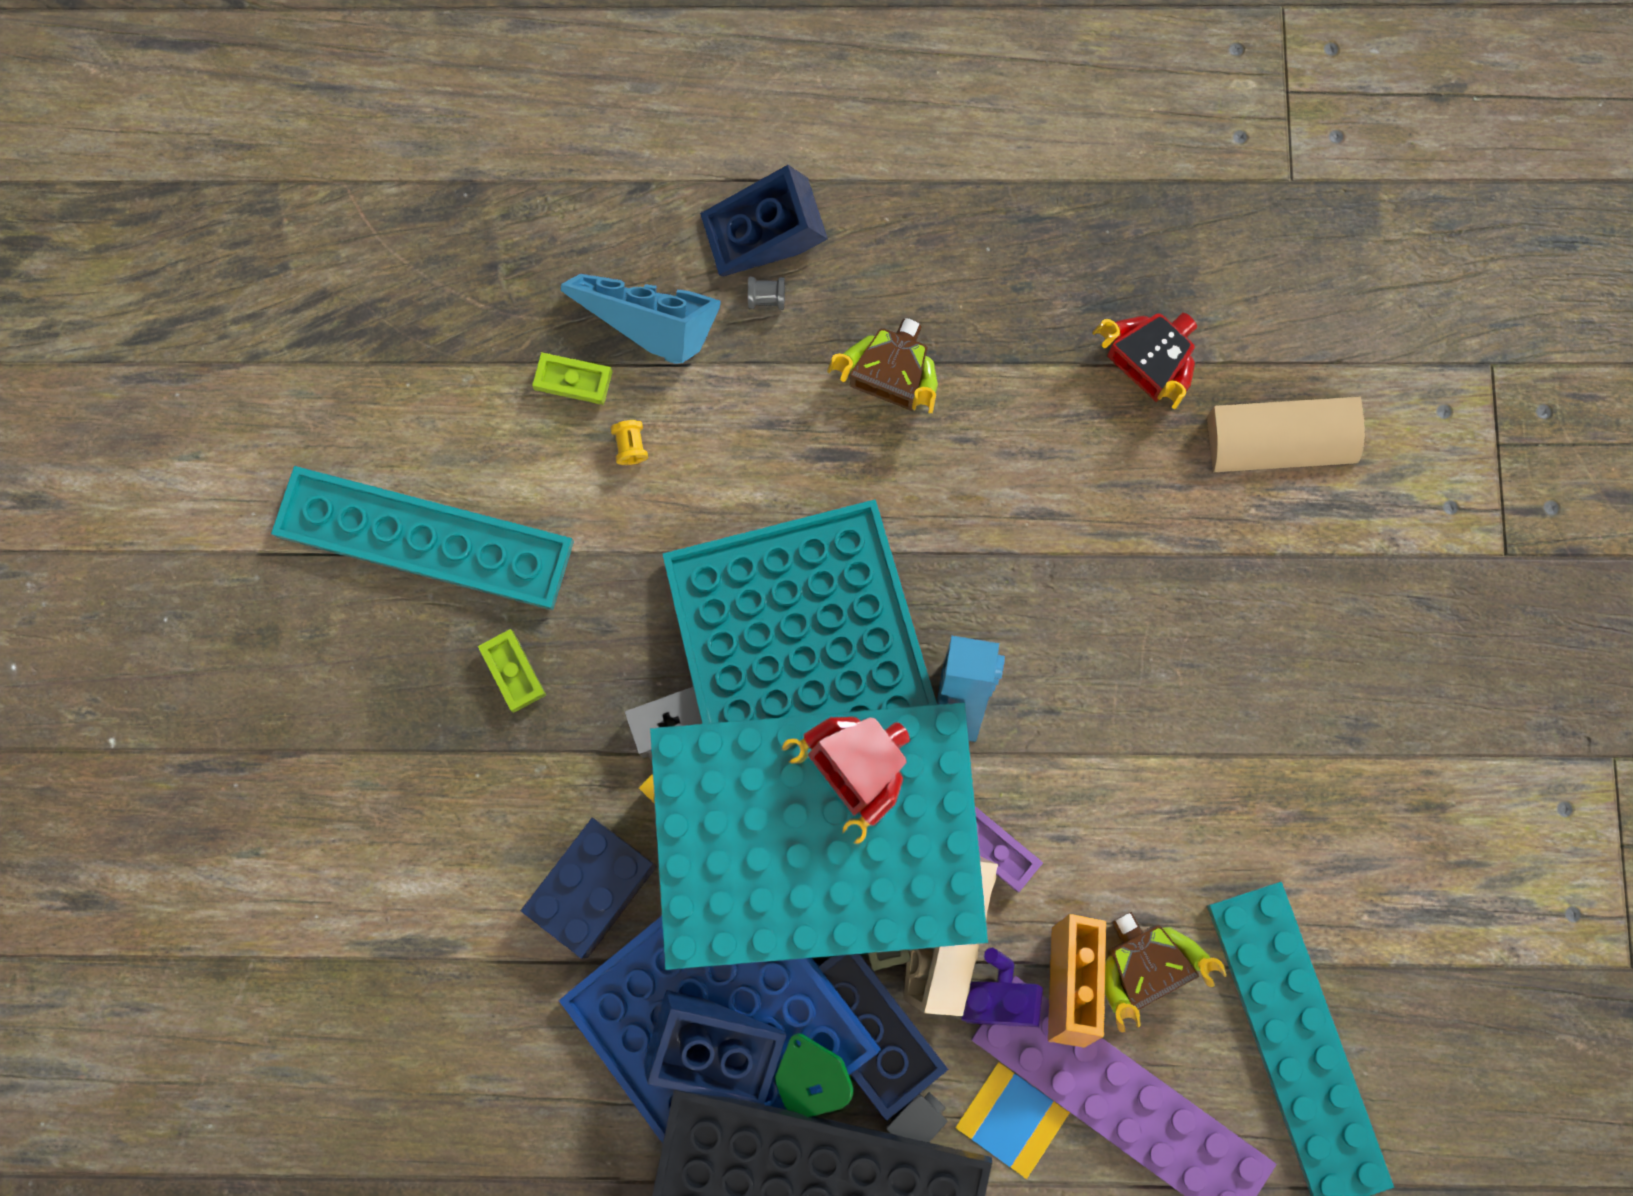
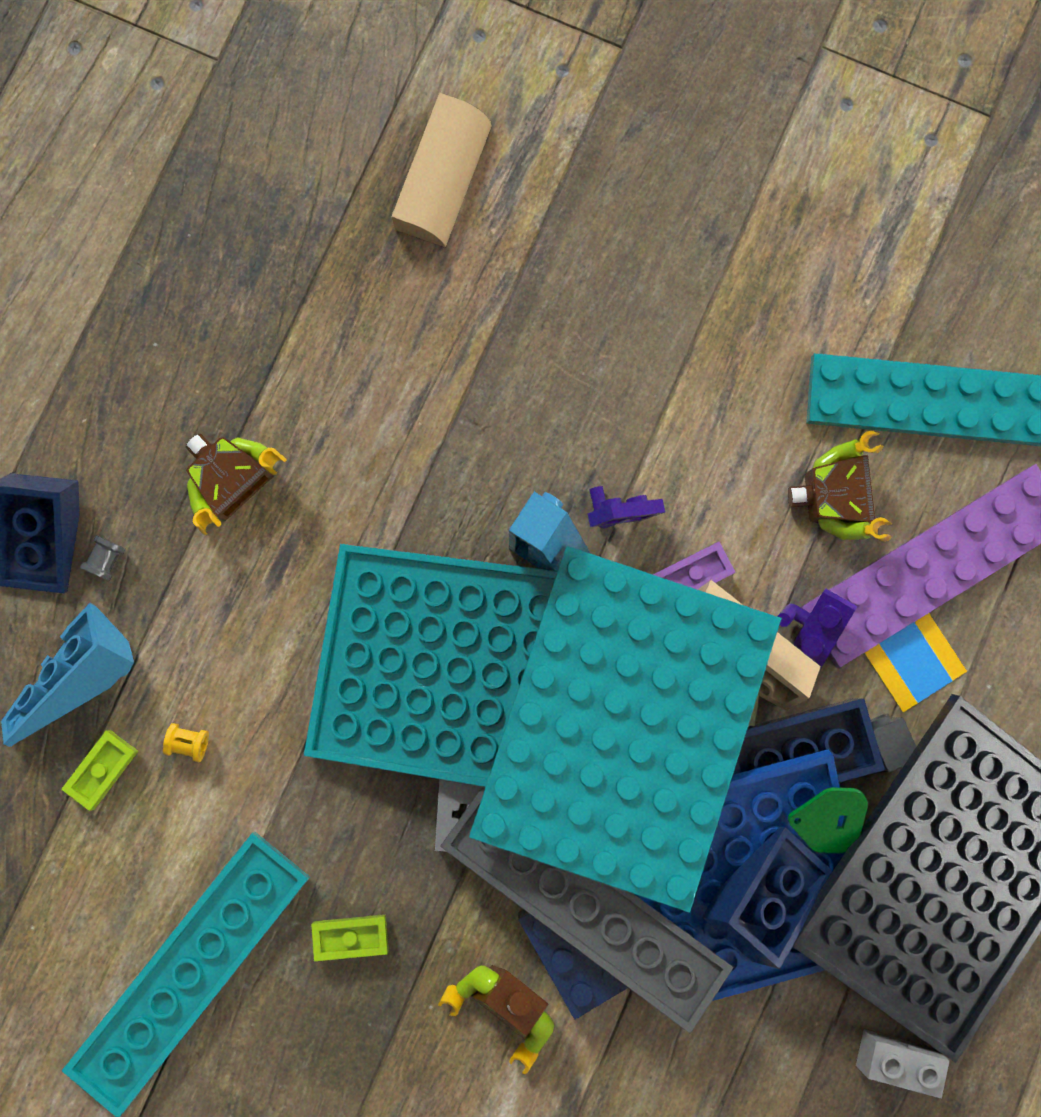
camera: 75 degrees left, 5 degrees up
(510, 847) = (510, 1003): none -> torso
(620, 898) = (603, 924): none -> dark grey plate
(858, 763) = (586, 663): torso -> none
(1022, 742) = (614, 512): none -> dark purple plate
(1077, 981) = (832, 557): light orange brick -> none
(1153, 353) = (320, 246): torso -> none

